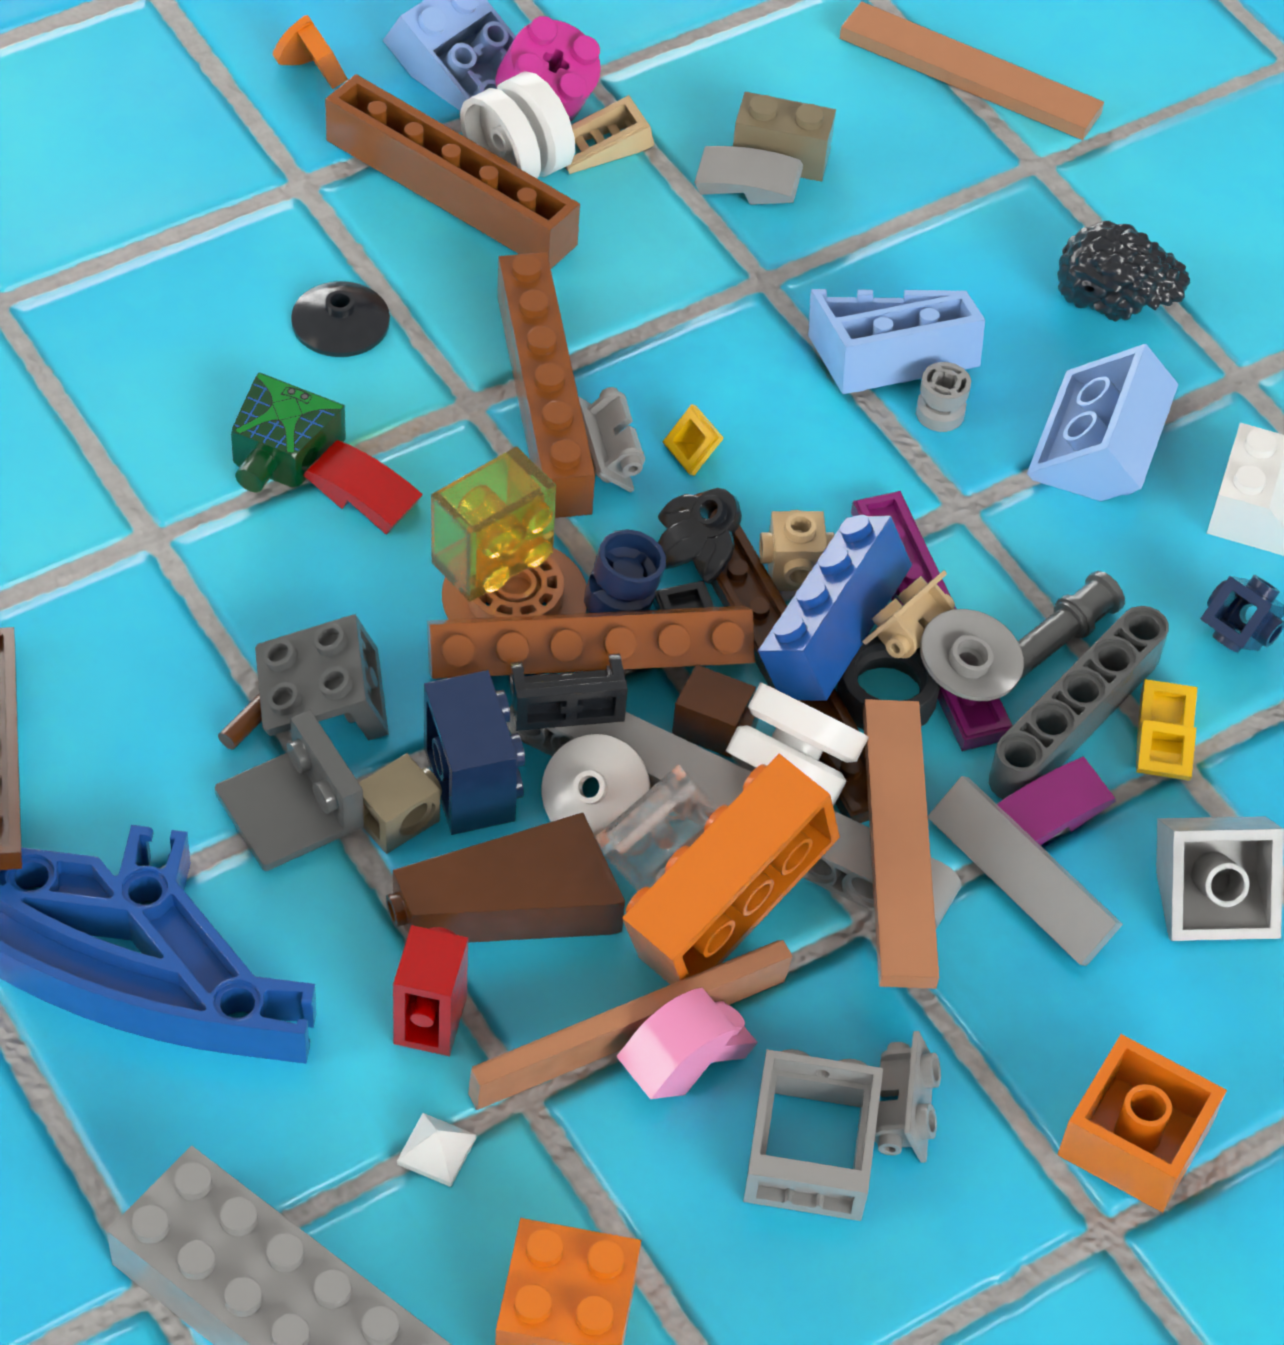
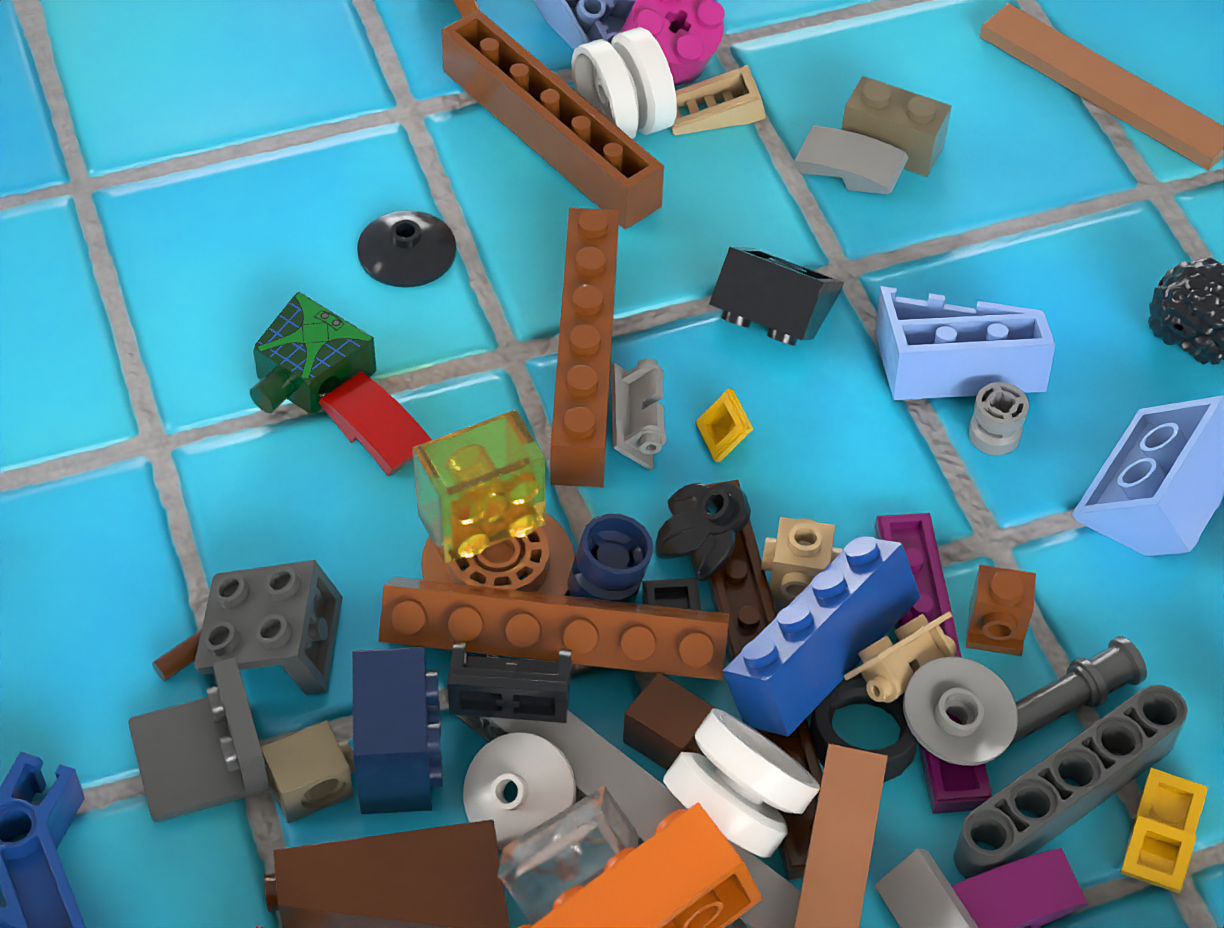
camera: 15 degrees right, 0 degrees up
(708, 312) = (773, 294): none -> black slope
(984, 565) = (1000, 610): none -> dark orange brick

